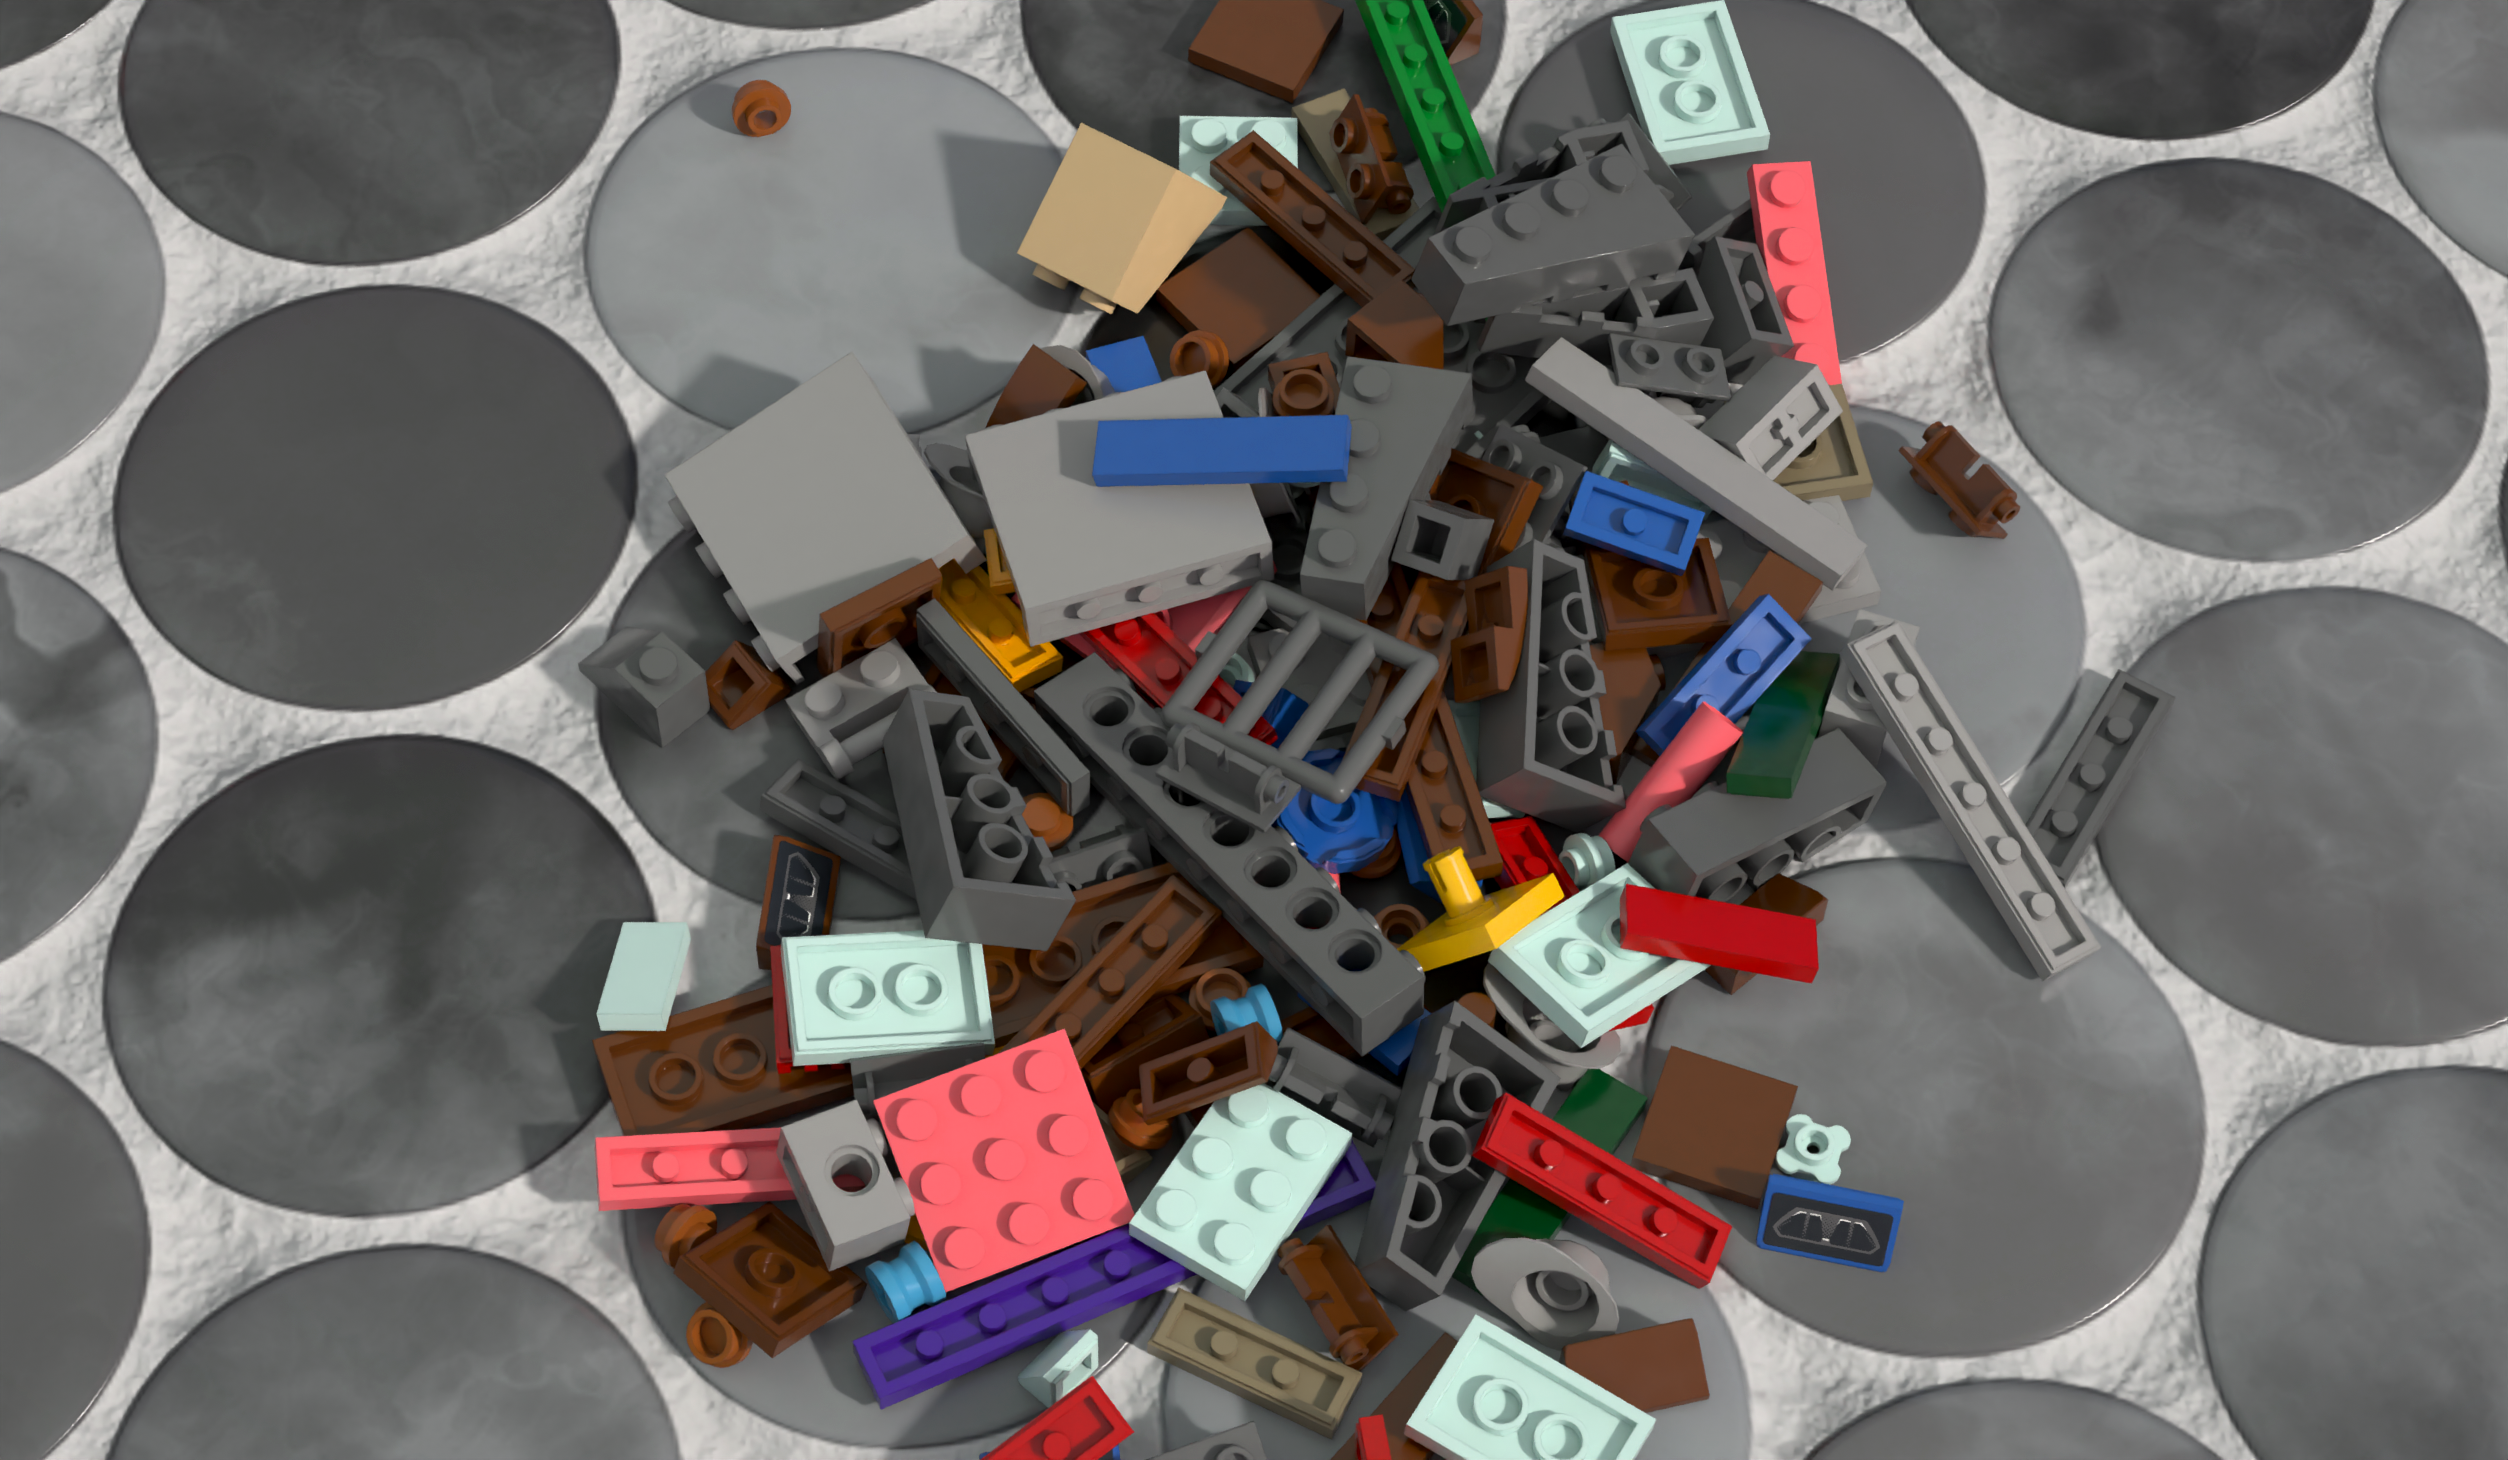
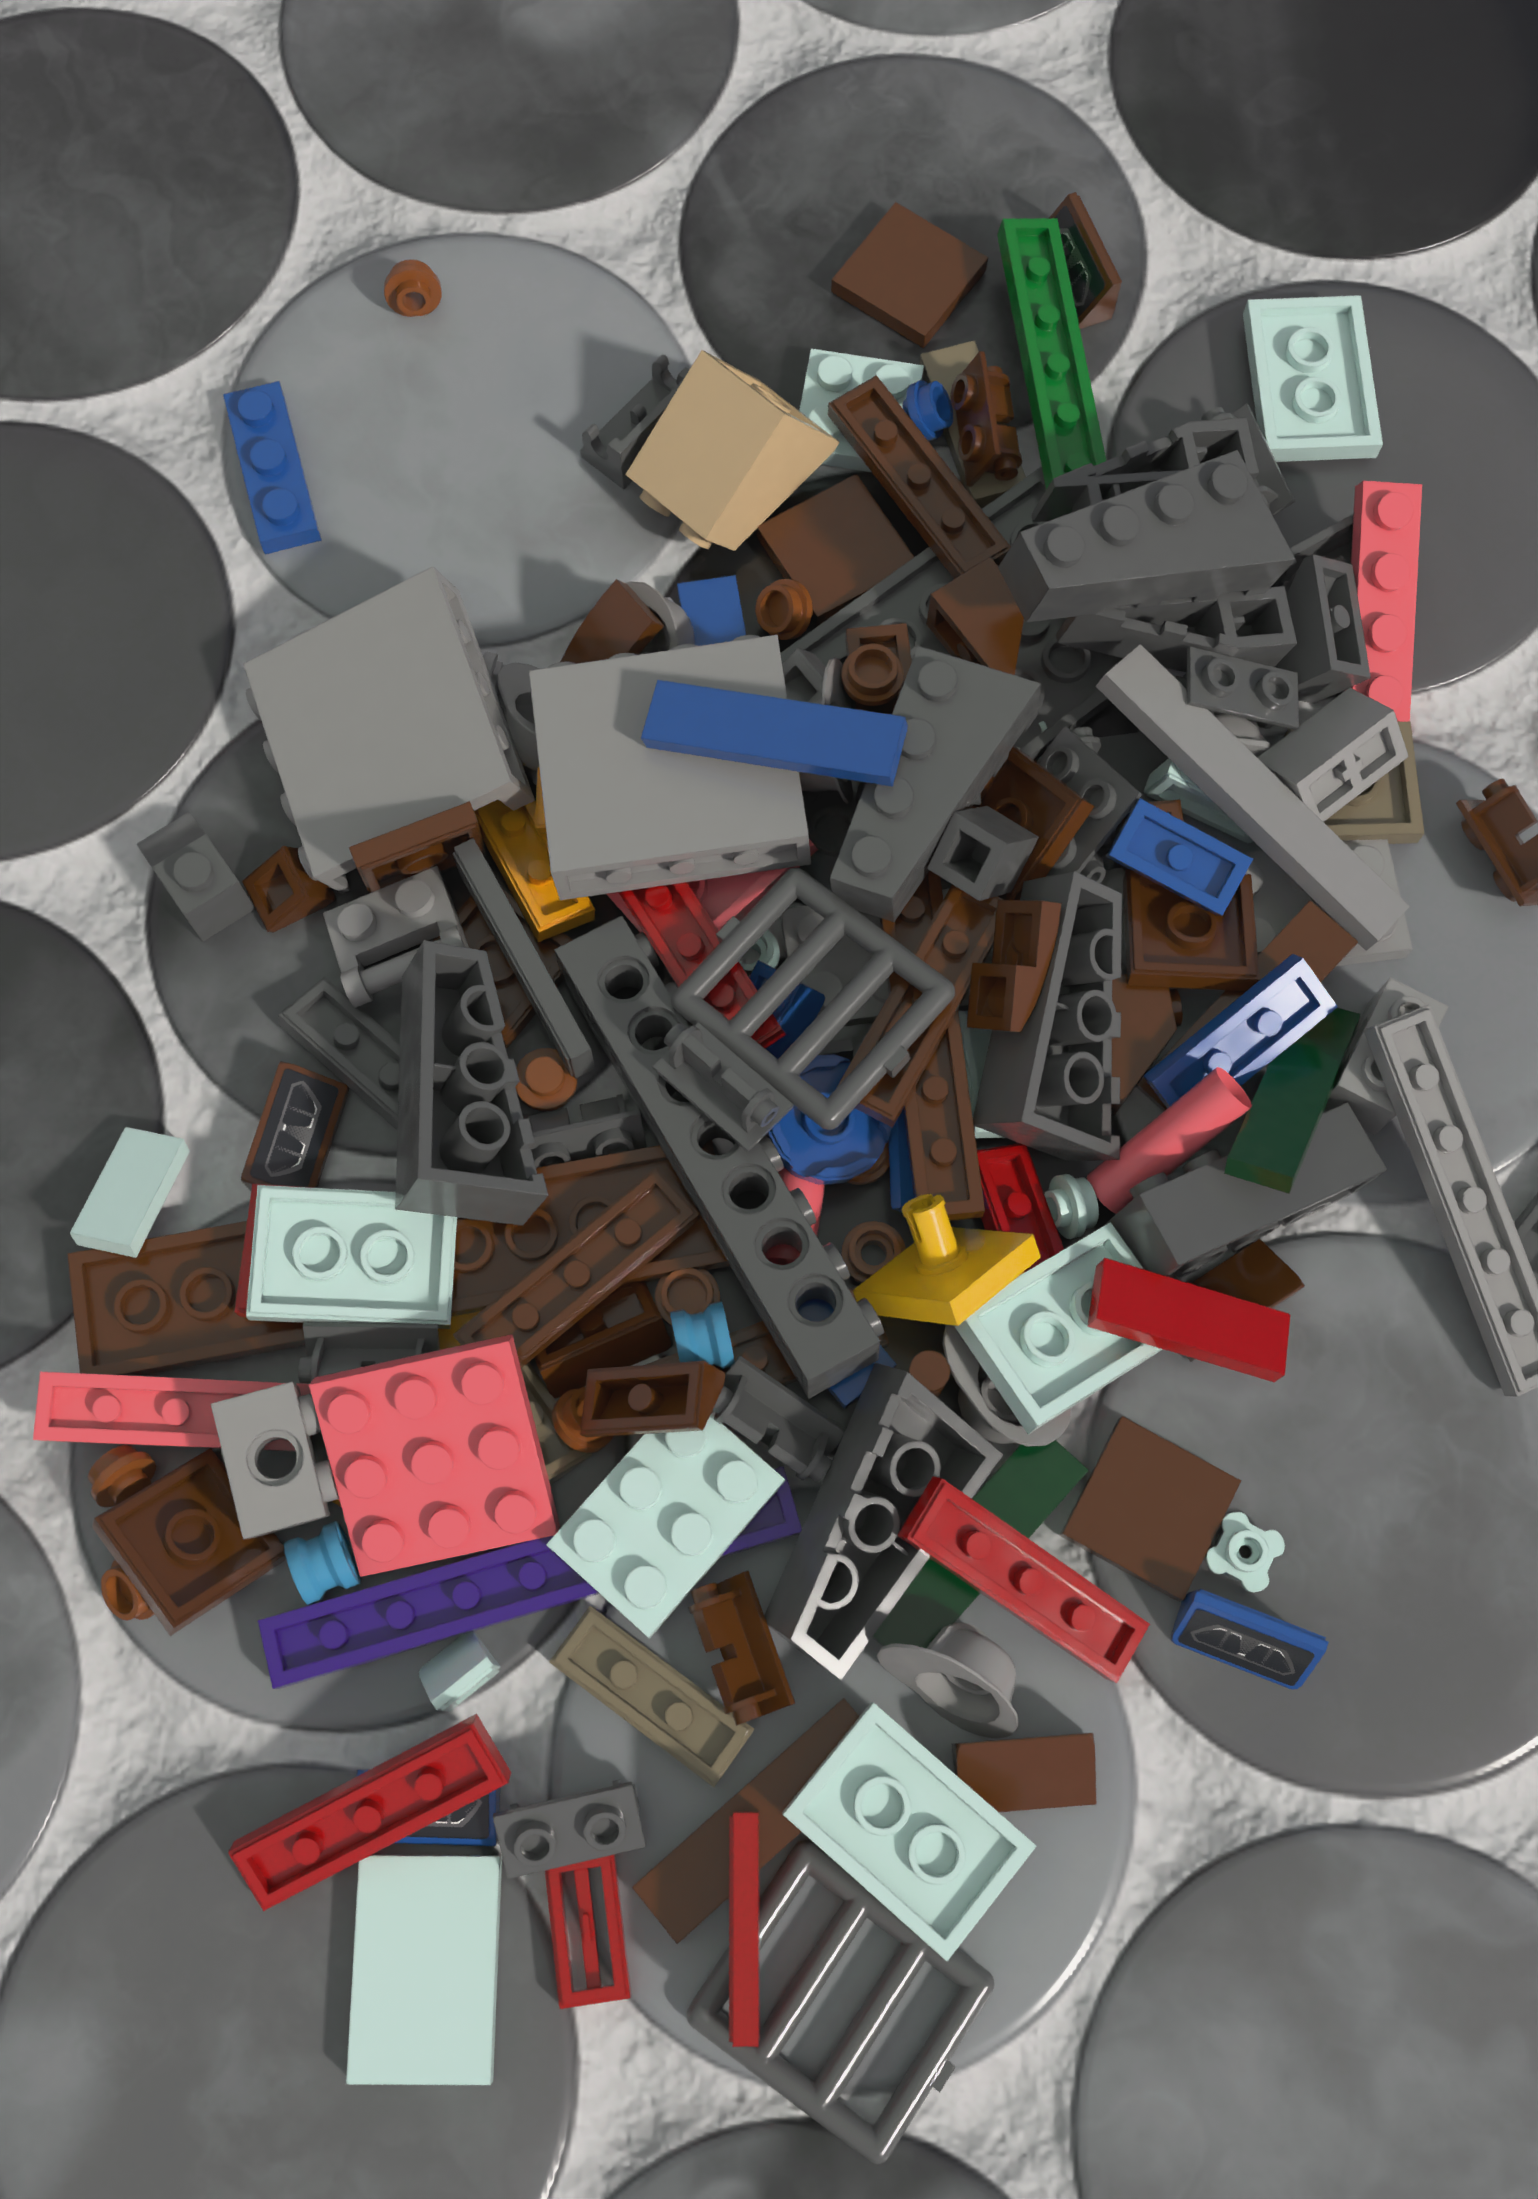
camera: 10 degrees right, 15 degrees up
(646, 295) = (272, 467): none -> blue plate
(1004, 223) = (622, 438): none -> dark grey hinge
(1311, 154) = (929, 408): none -> blue plate

